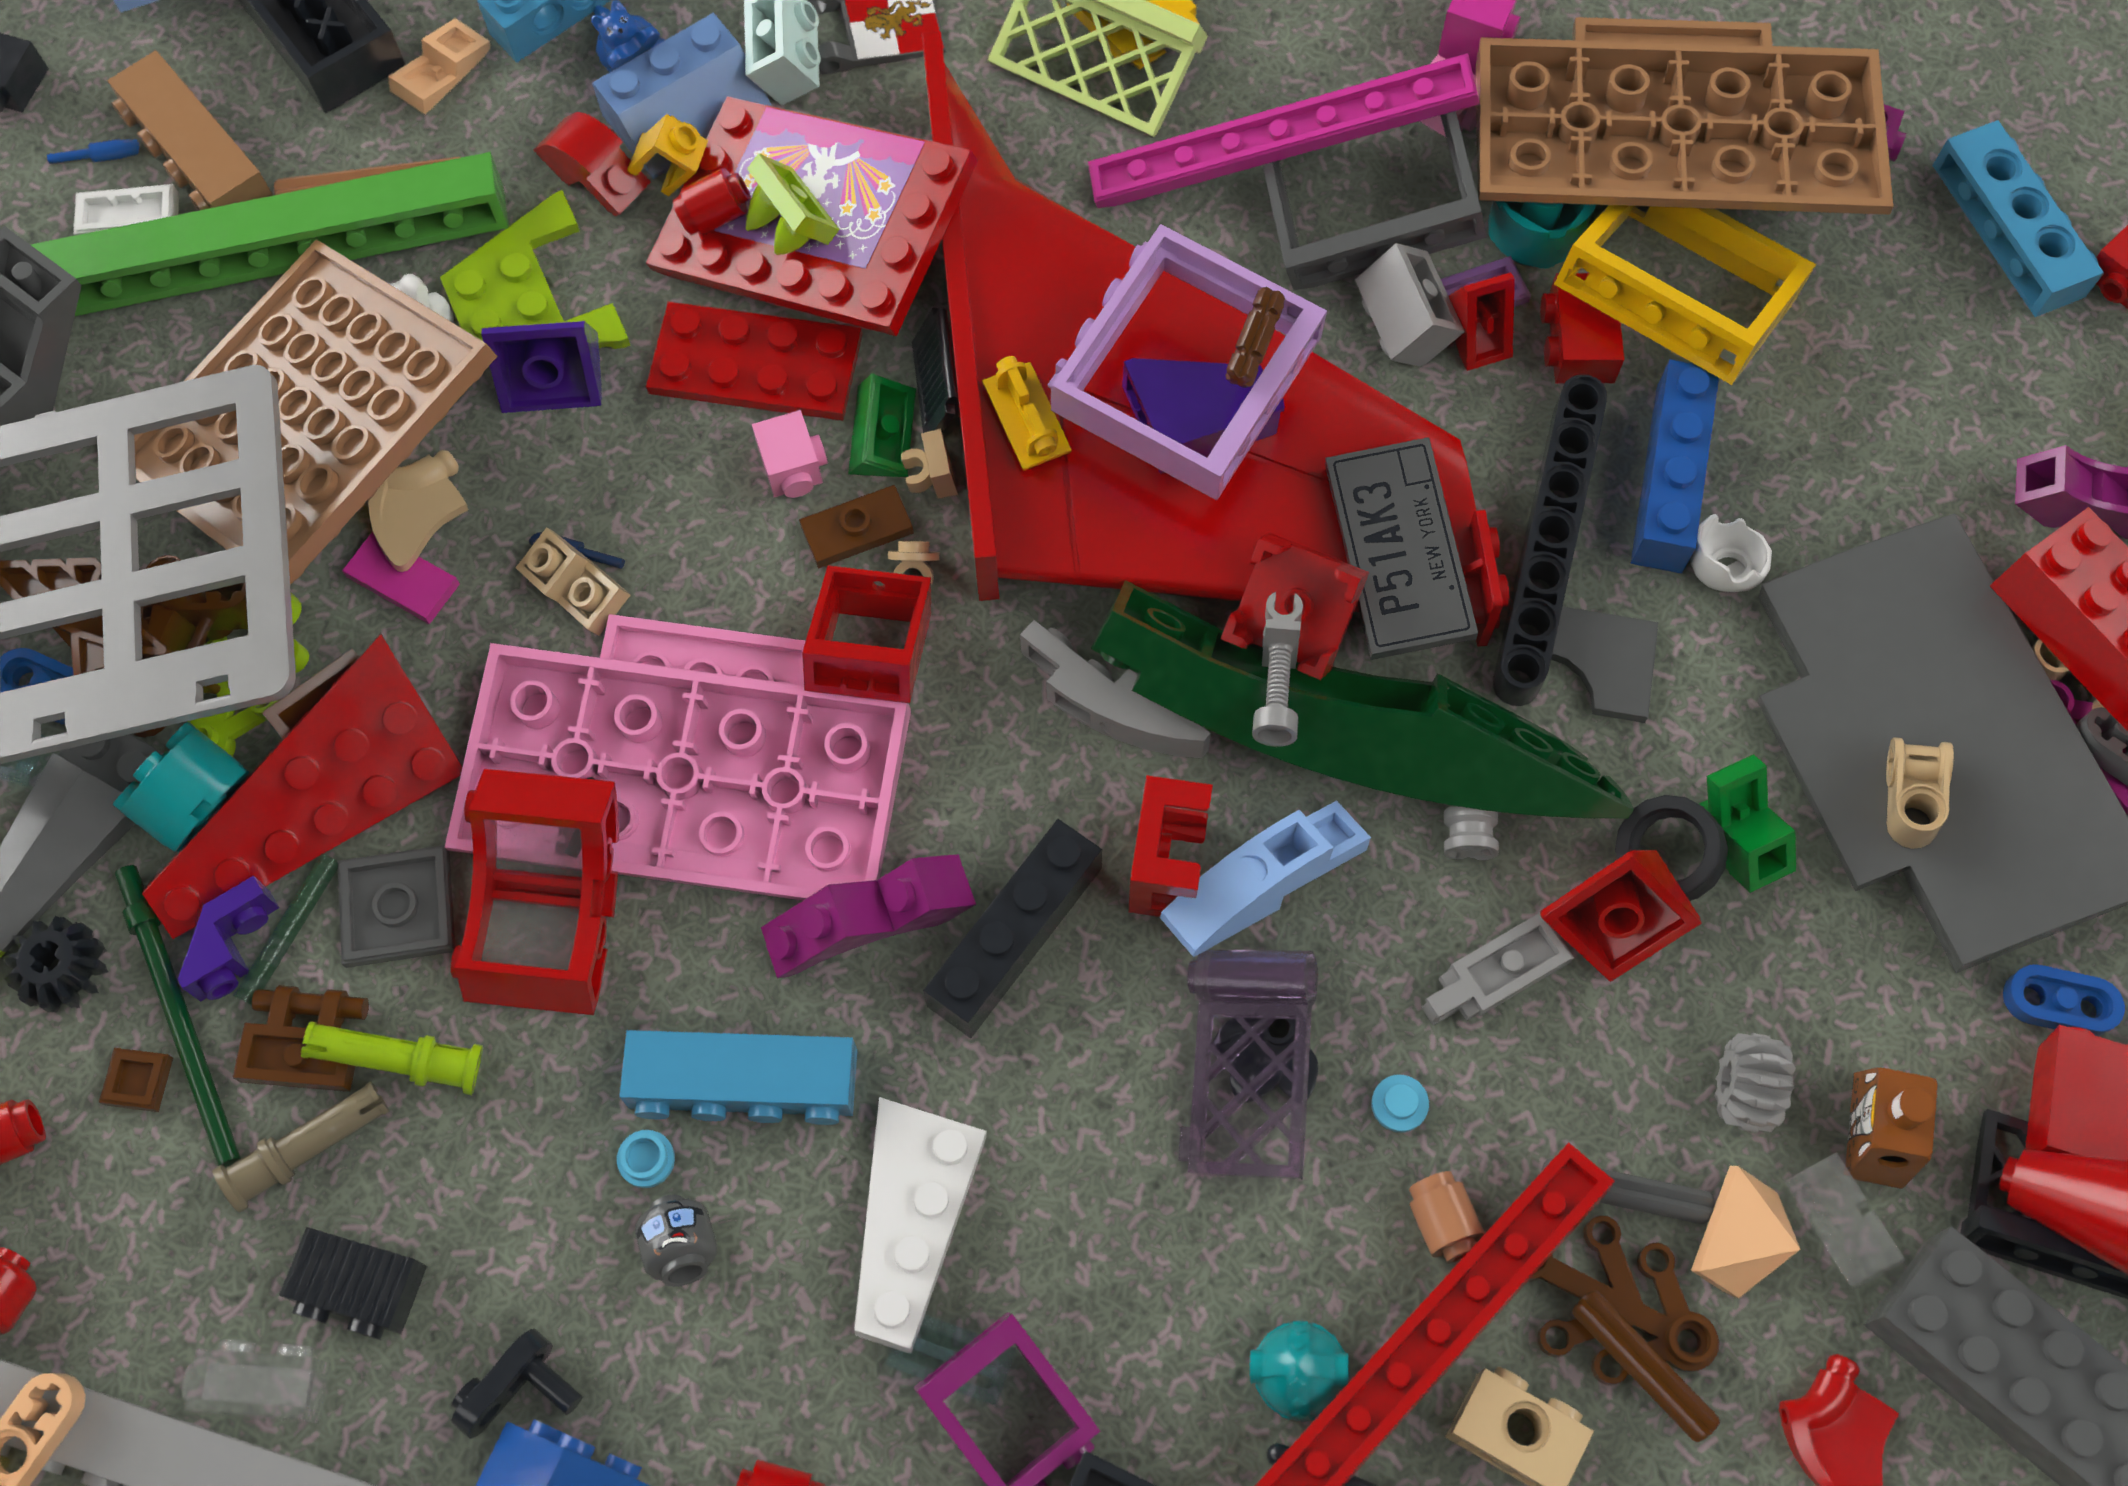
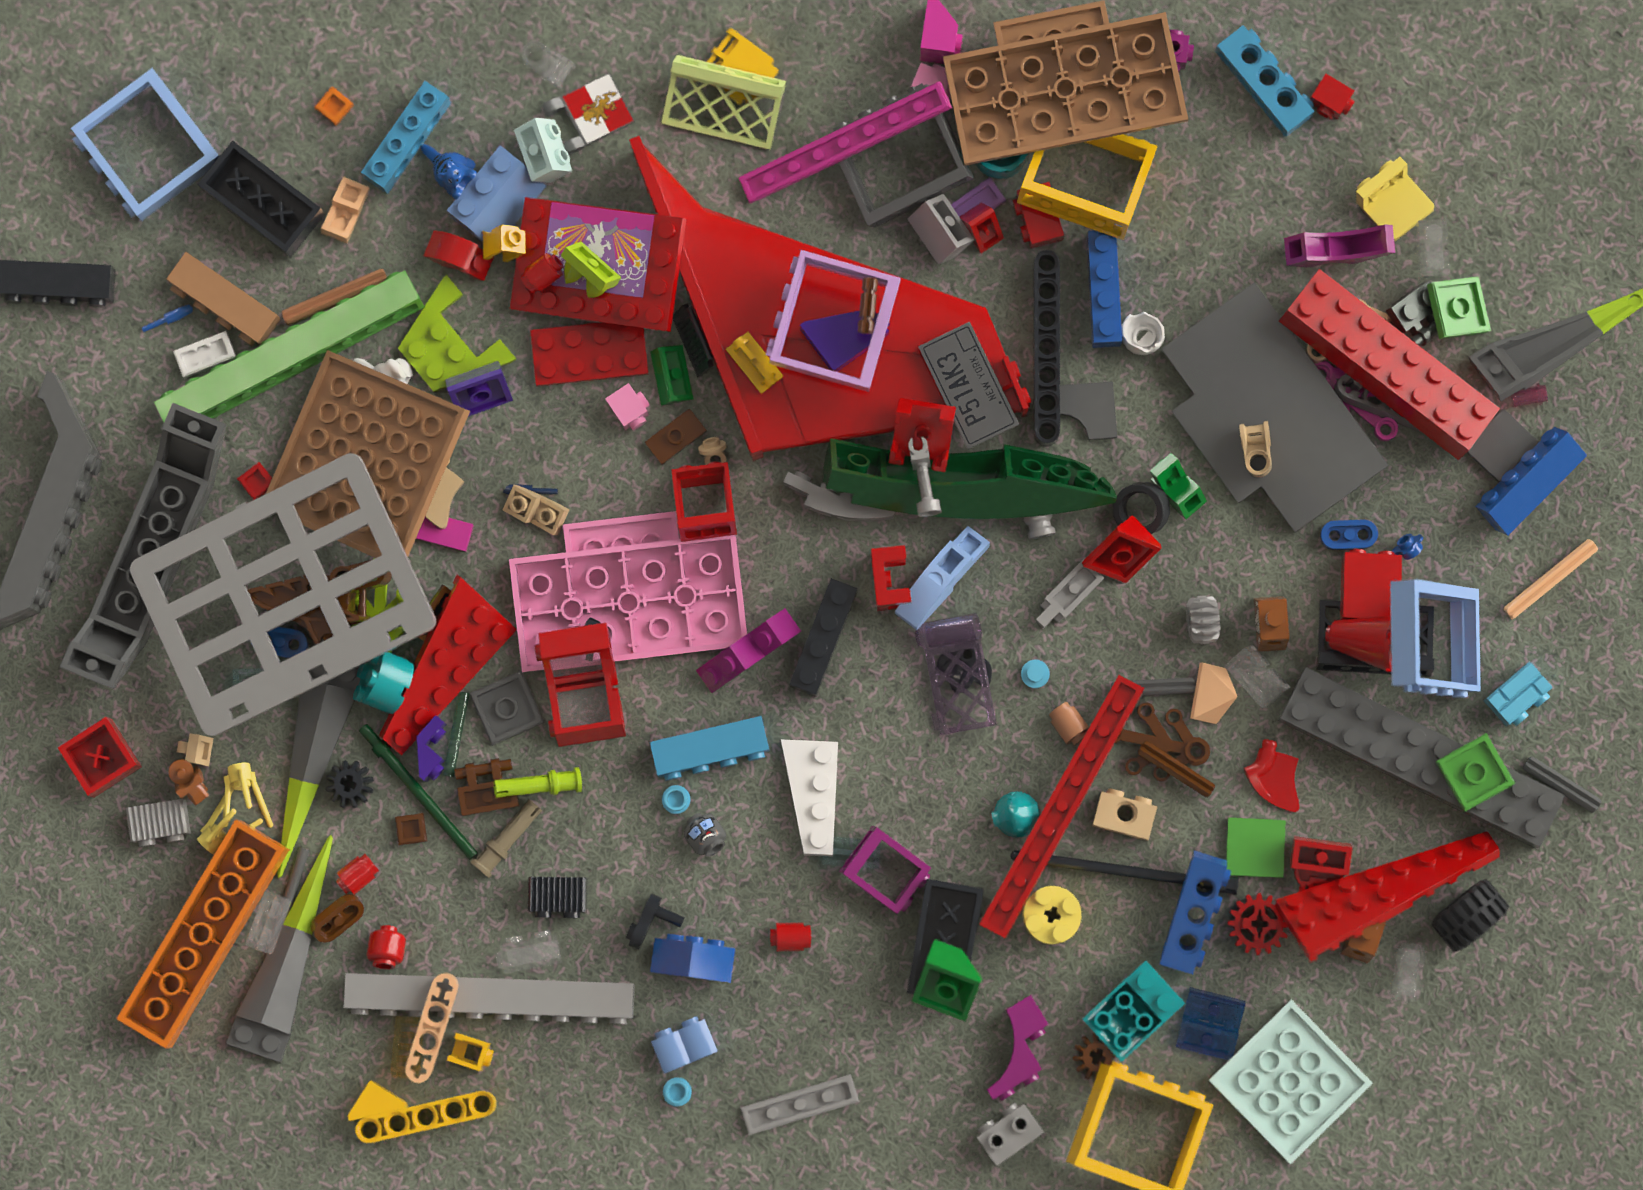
camera: 10 degrees left, 15 degrees up
(935, 464) = (709, 392): tan tile -> none

